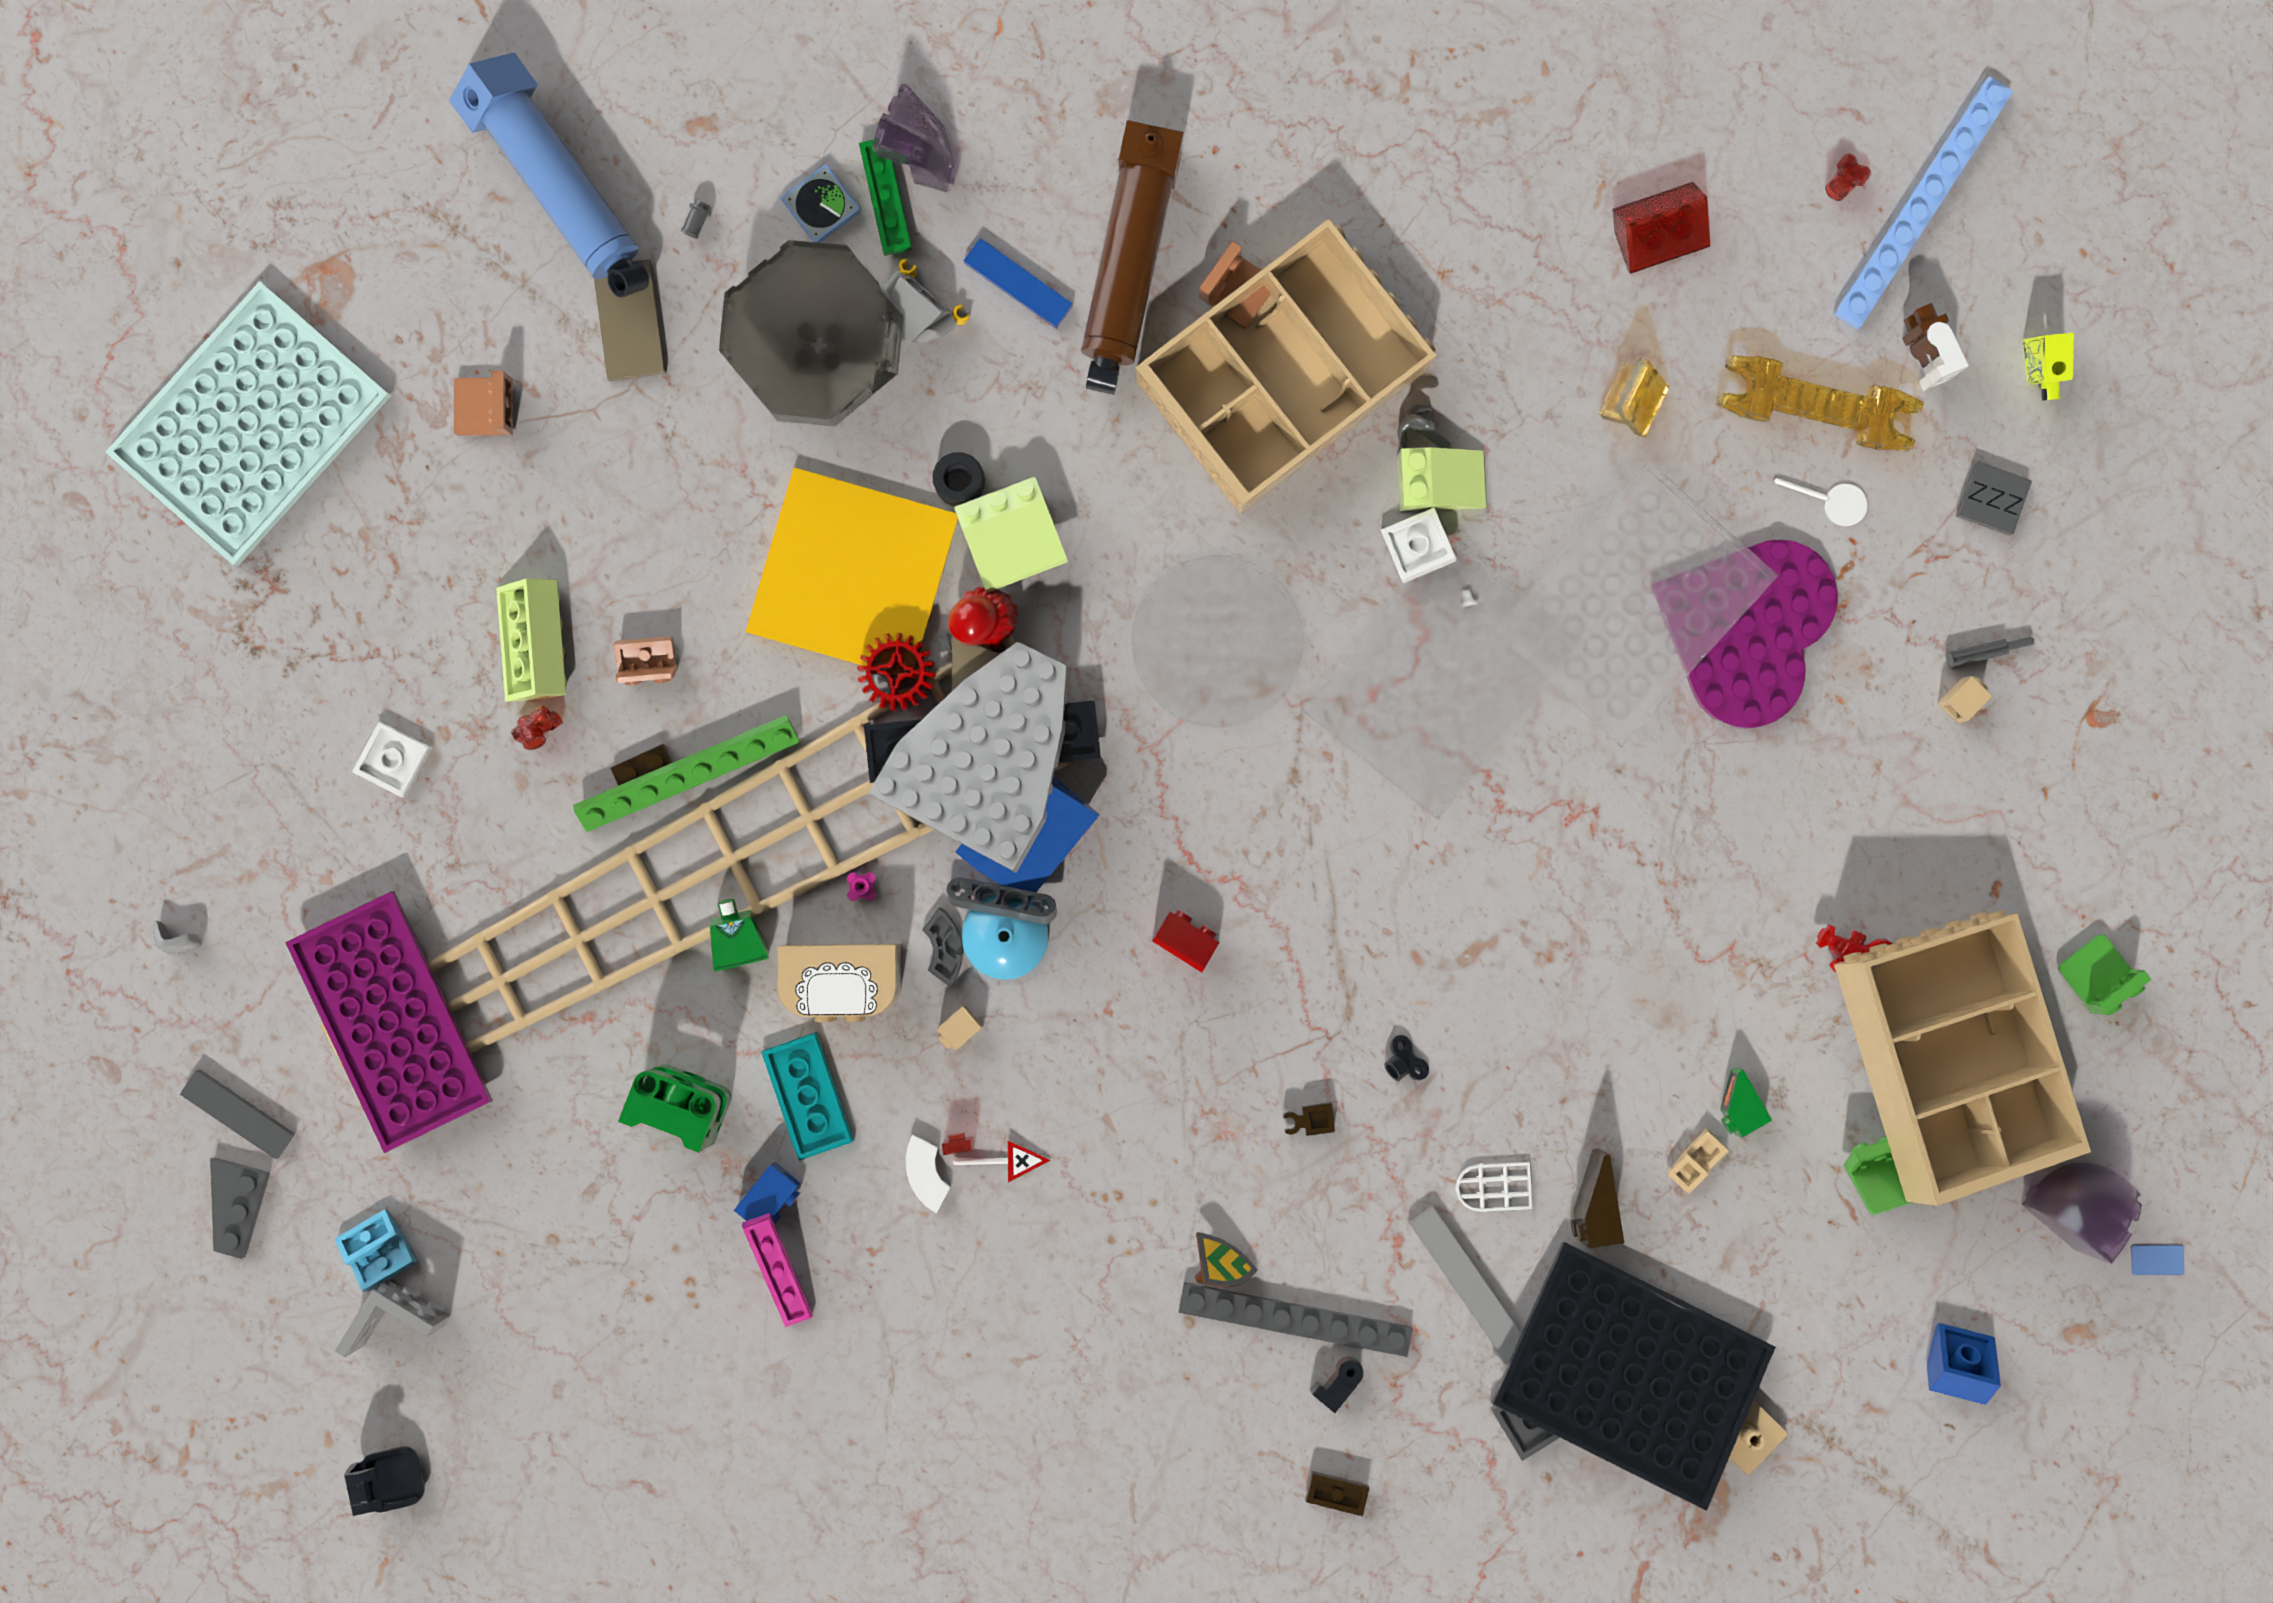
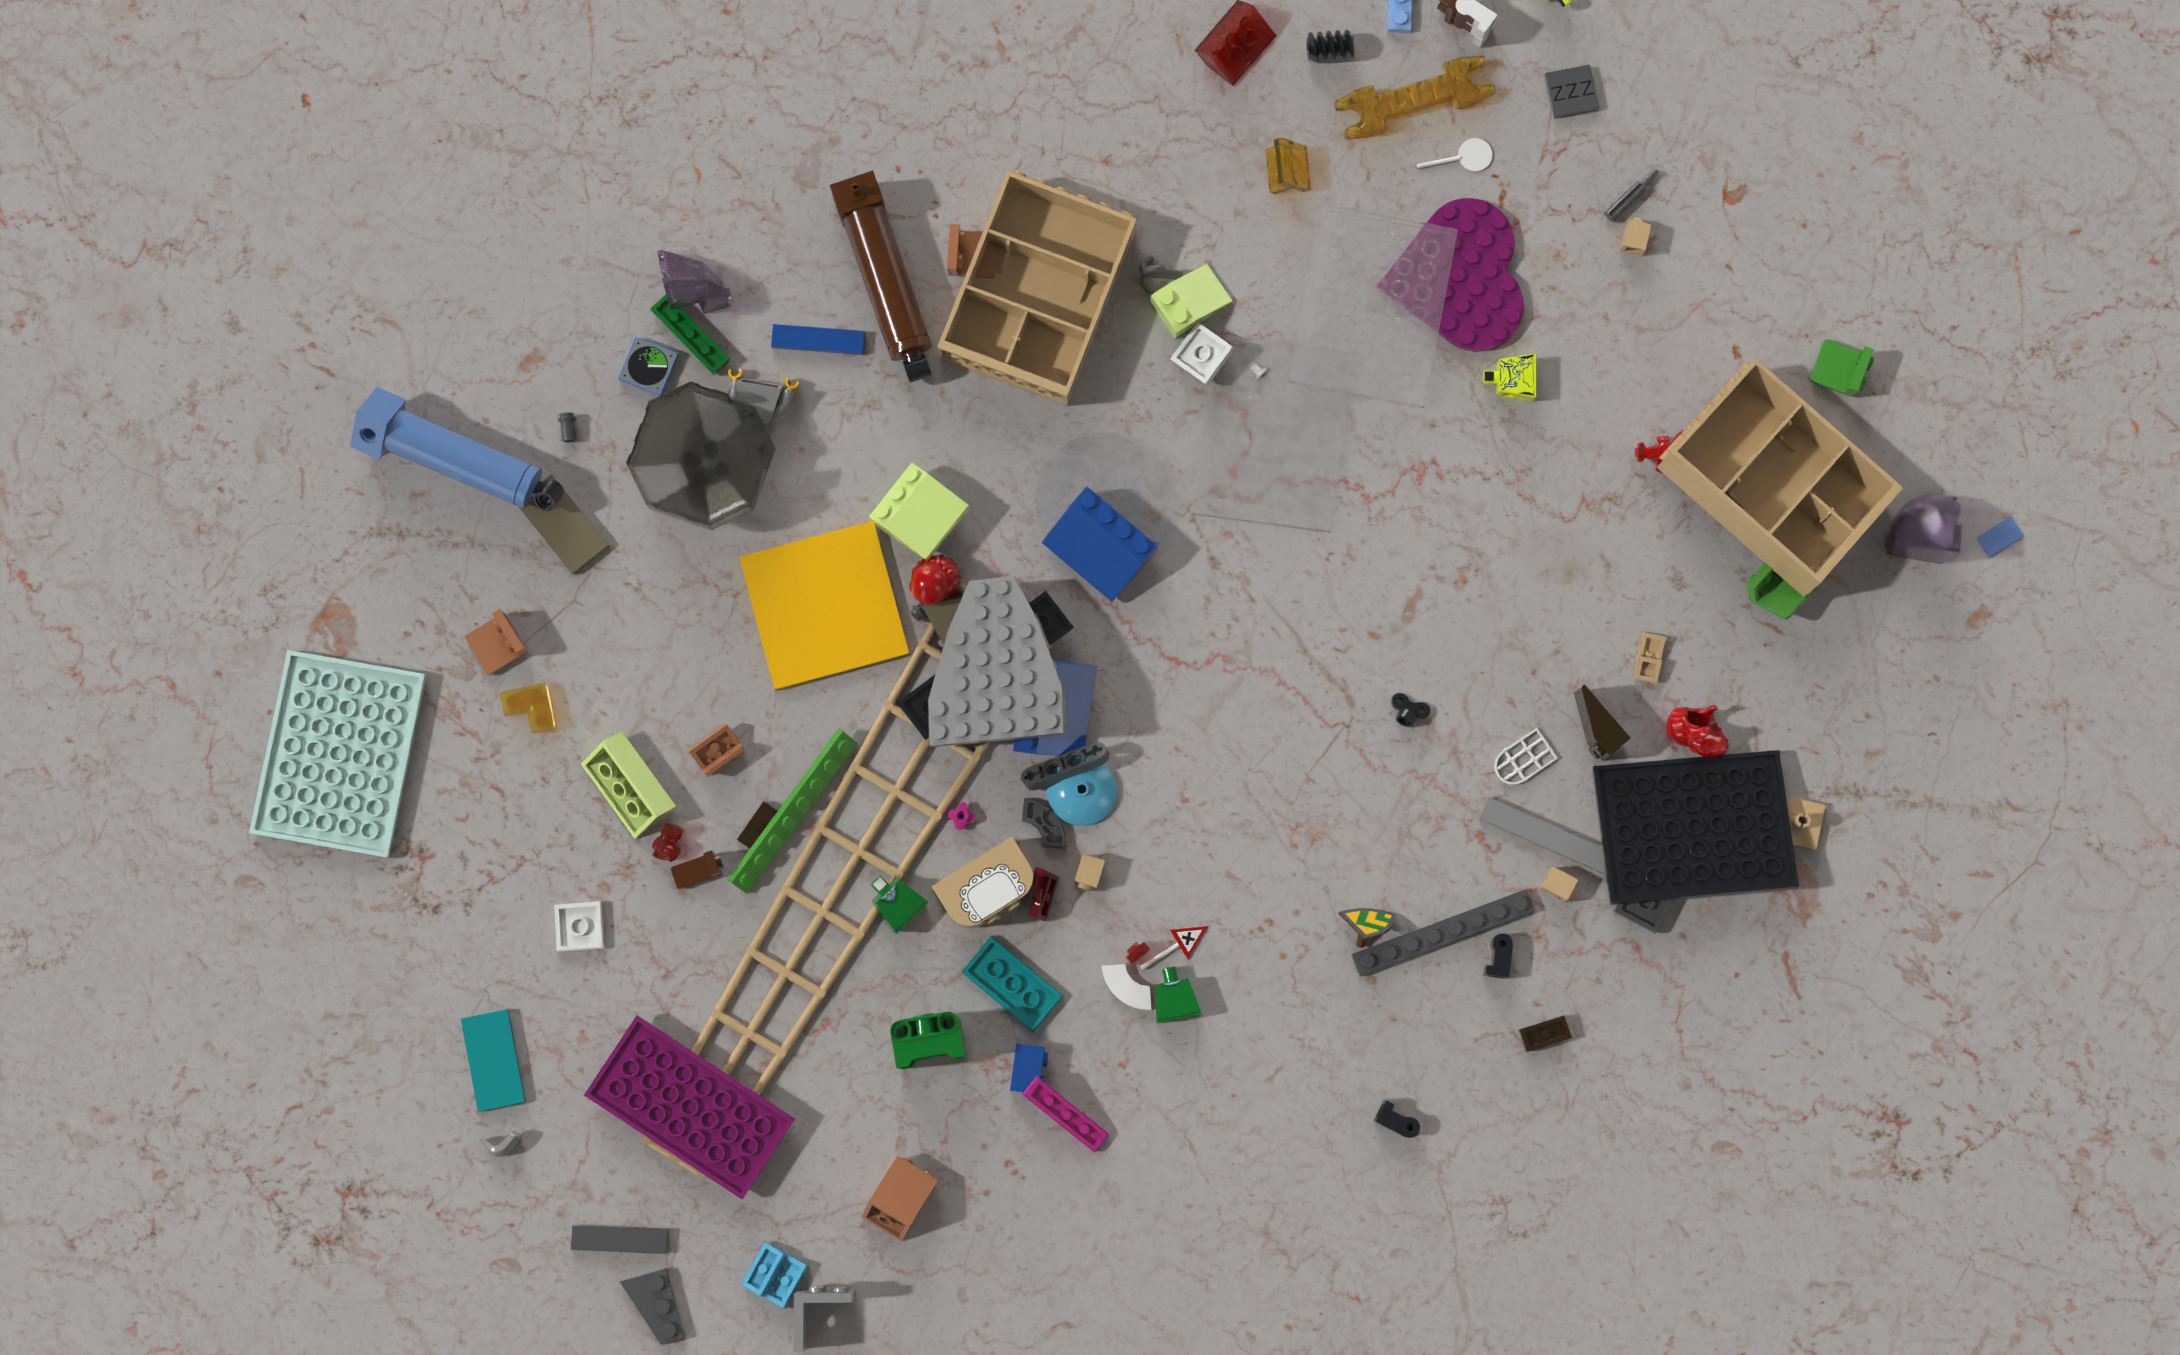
camera: 30 degrees left, 5 degrees down
(218, 846) = (493, 1060): none -> teal tile
(486, 494) = (534, 701): none -> clear yellow plate
(549, 775) = (697, 869): none -> reddish brown bracket
(553, 1250) = (899, 1197): none -> nougat slope
(895, 1021) = (1042, 893): none -> dark red wing
(897, 657) = (907, 647): red gear -> none
(955, 461) = (849, 486): black tyre -> none
(967, 1217) = (1174, 998): none -> green torso
(1125, 1496) = (1397, 1123): none -> black leg
(1182, 685) = (1099, 544): none -> blue slope
(1186, 941) = (1208, 717): red slope -> none
(1315, 1119) = (1371, 786): dark brown plate -> none
(1450, 1346) = (1559, 884): none -> tan brick
(1700, 1274) = (1697, 731): none -> red hair
(1739, 773) = (1514, 377): none -> neon yellow torso
(1742, 1106) = (1655, 600): green slope -> none
(1763, 290) = (1329, 44): none -> black piece
(1963, 1364) = (1912, 685): blue slope -> none

